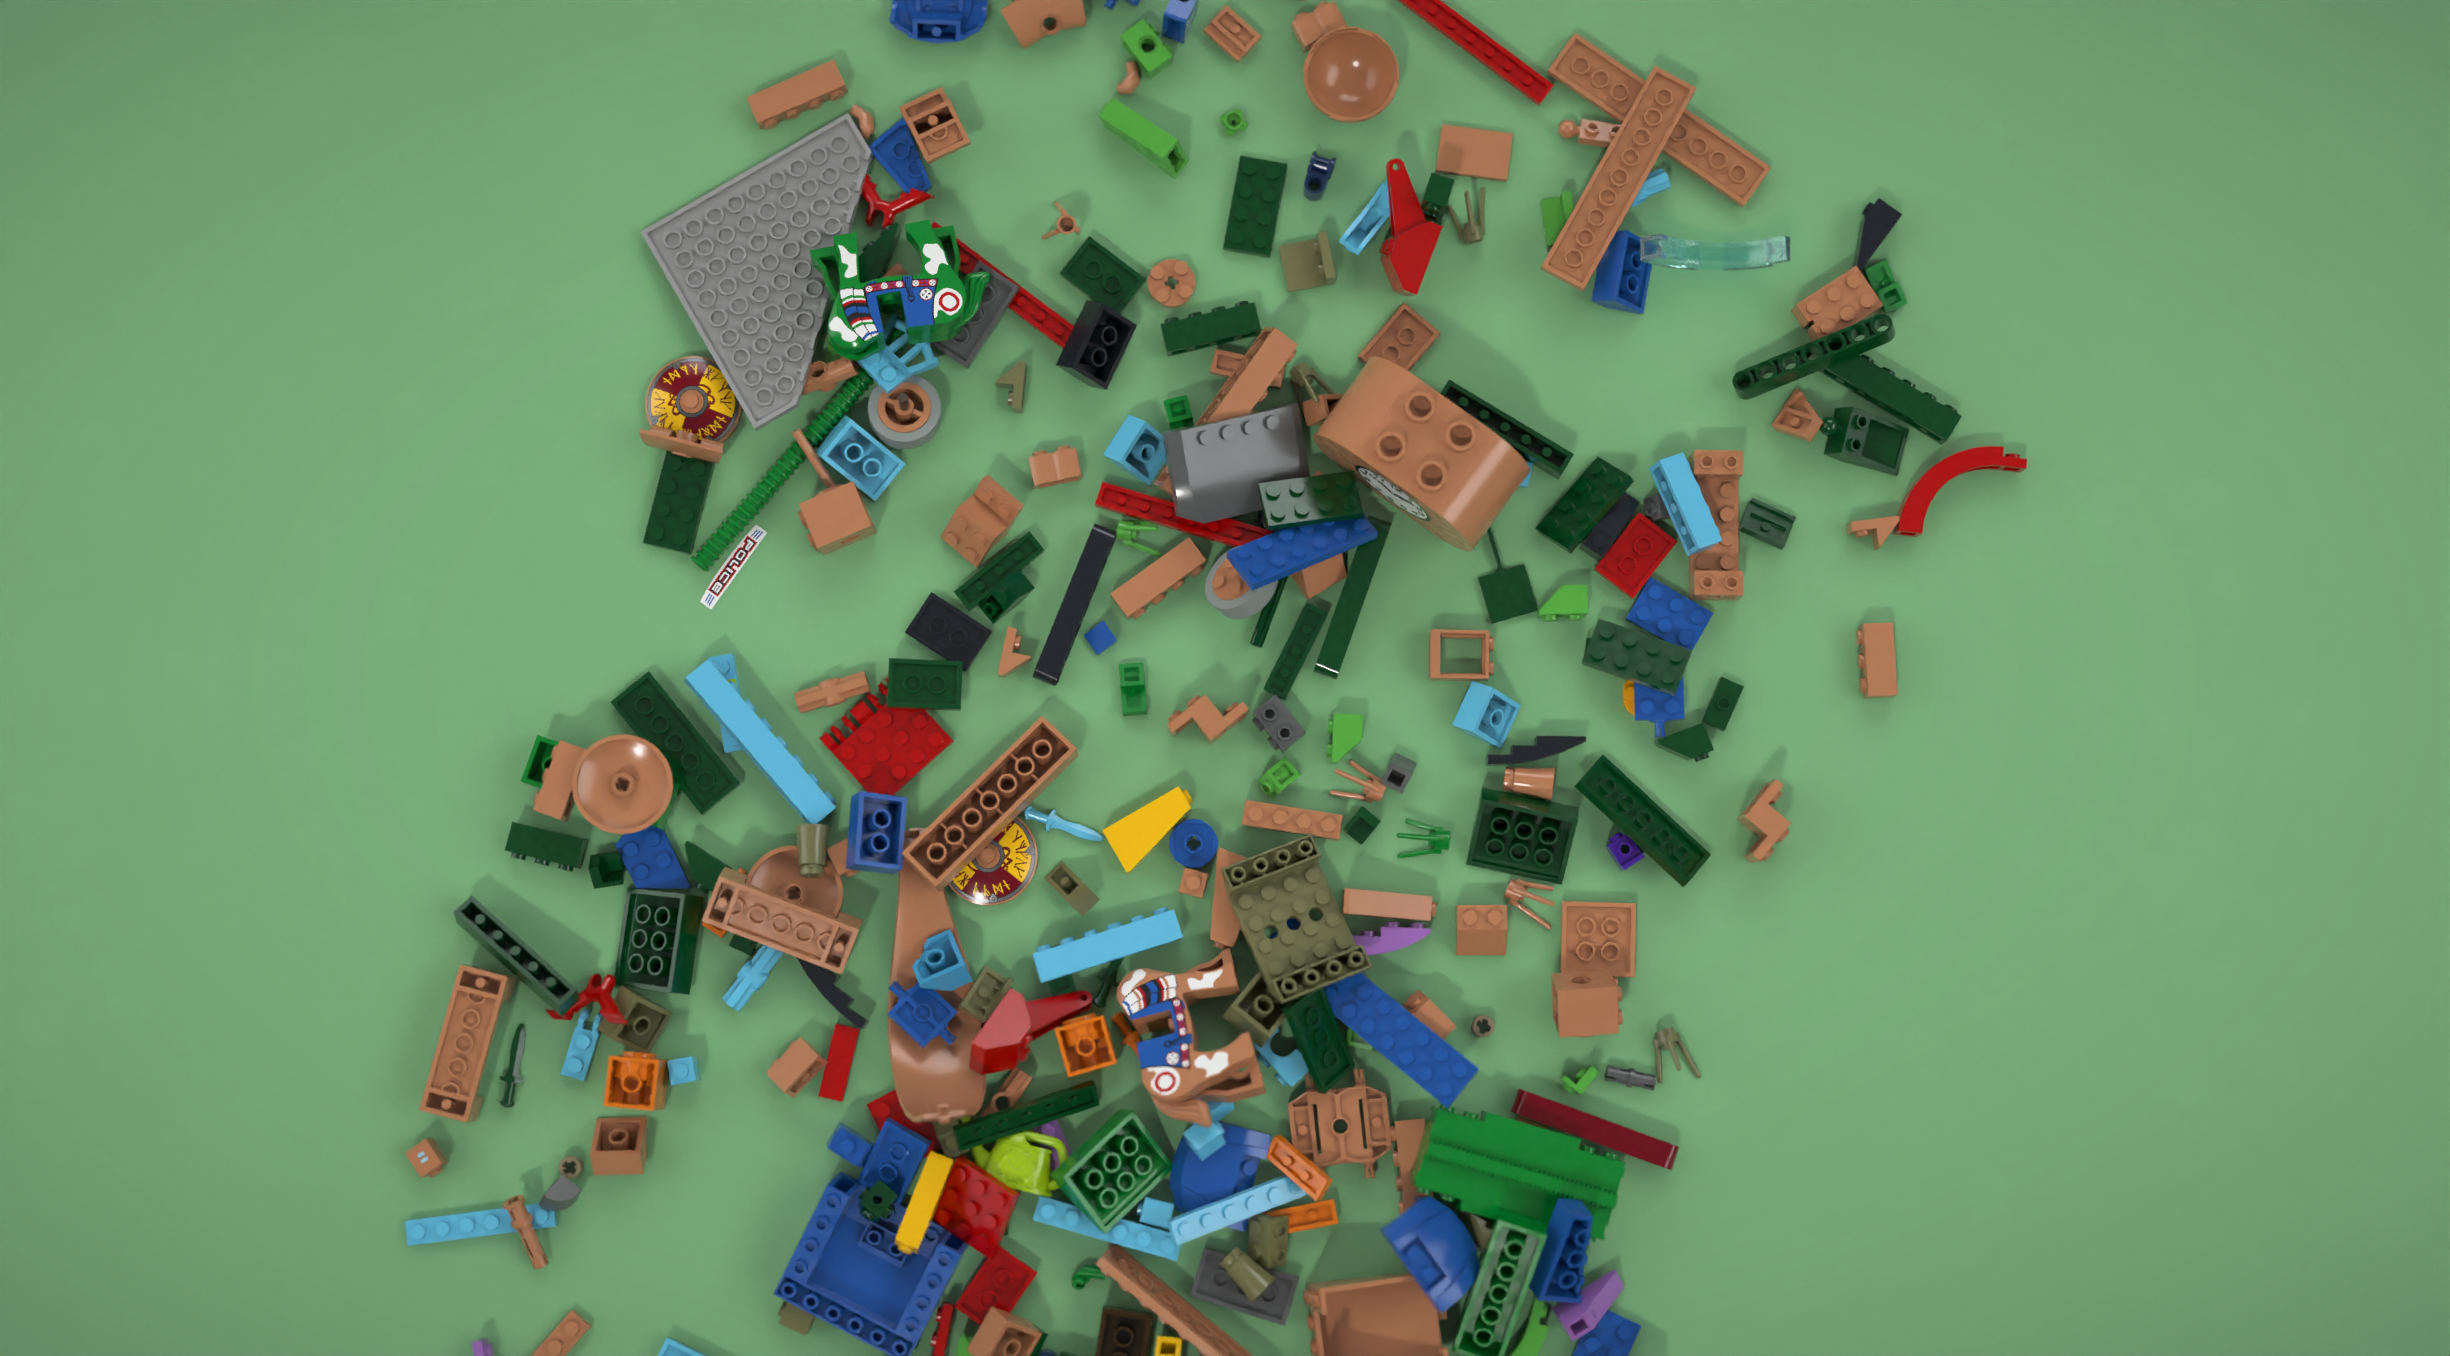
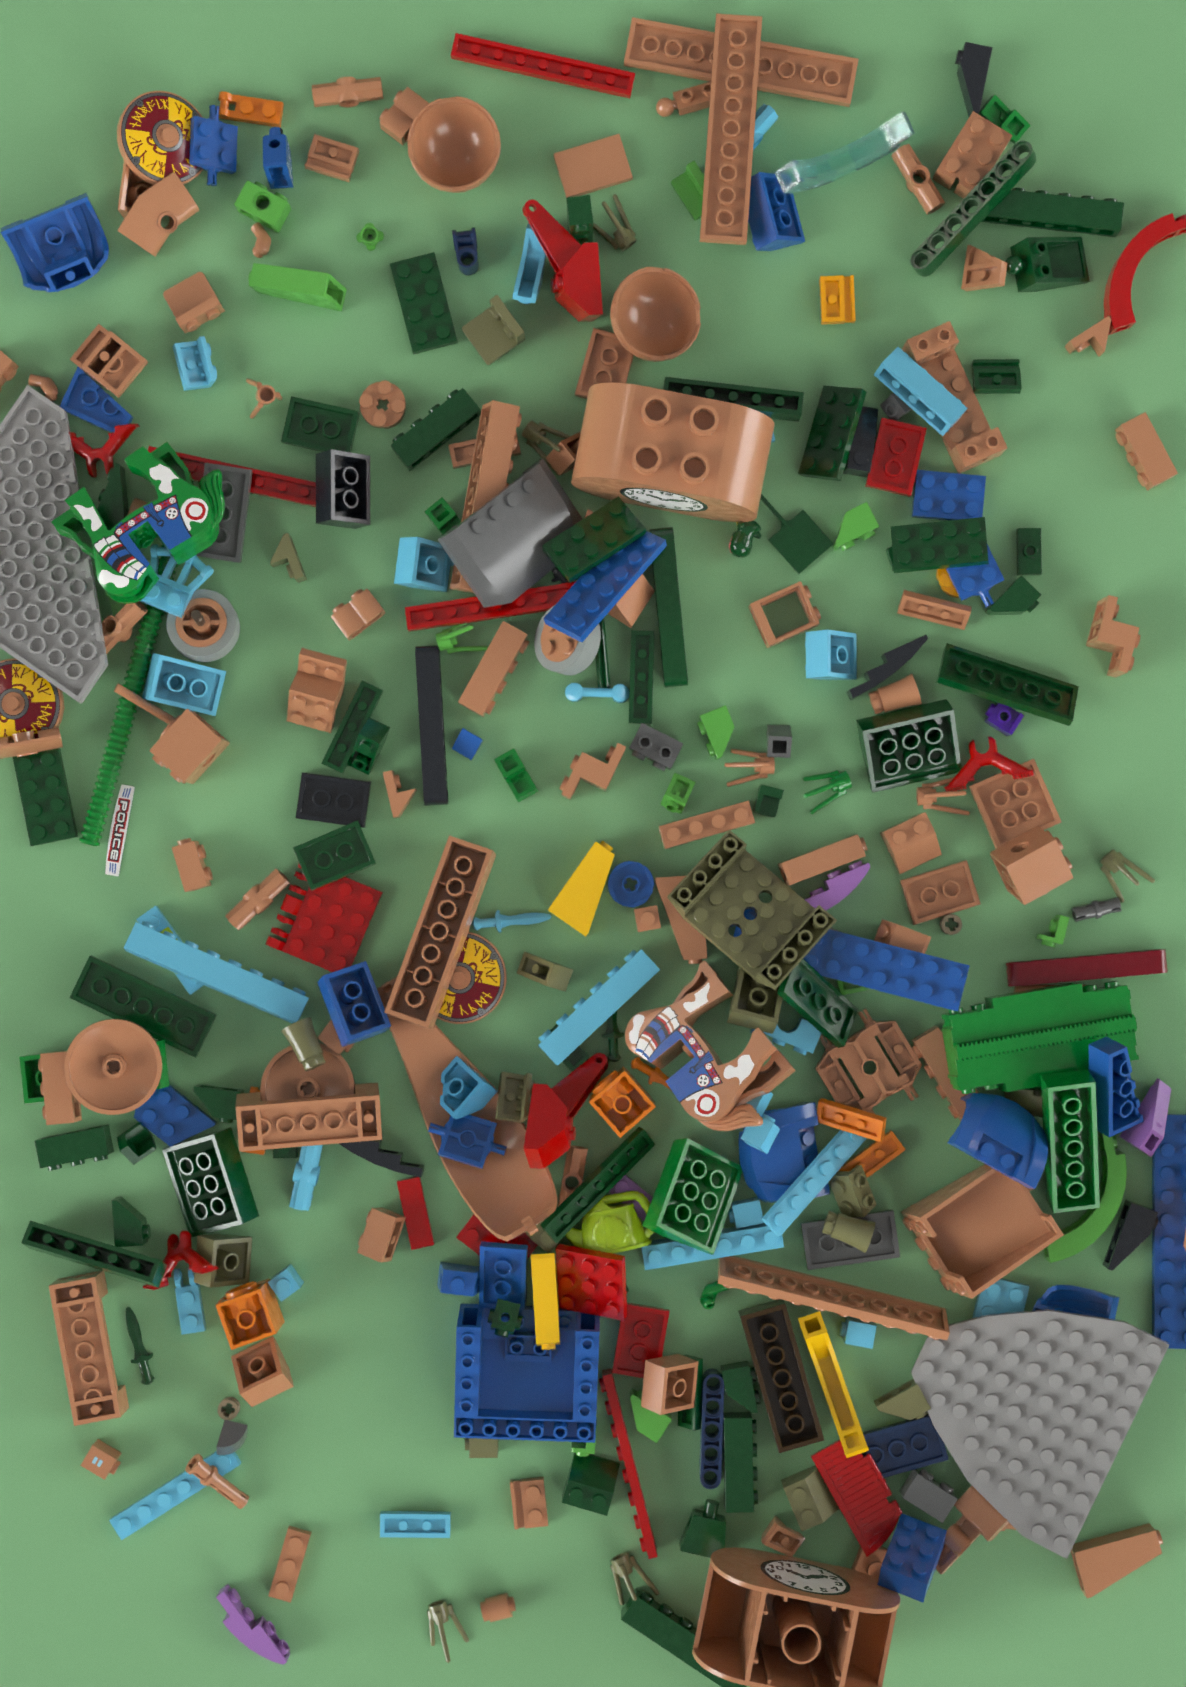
camera: 25 degrees left, 5 degrees up
(561, 944) = (128, 1224): none -> dark green slope
(785, 631) = (191, 865): none -> nougat brick
(1013, 165) = (195, 364): none -> medium azure bracket
(1039, 107) = (193, 302): none -> nougat bracket
(1226, 636) = (575, 692): none -> medium azure bar
(1452, 565) = (742, 539): none -> dark green animal
(1467, 317) = (655, 314): none -> nougat piece
(1487, 990) = (940, 892): none -> nougat tile
(1594, 883) = (978, 760): none -> red piece
(1605, 717) = (934, 609): none -> nougat plate
(1647, 382) = (837, 299): none -> light orange plate
(1777, 319) = (911, 166): none -> nougat piece

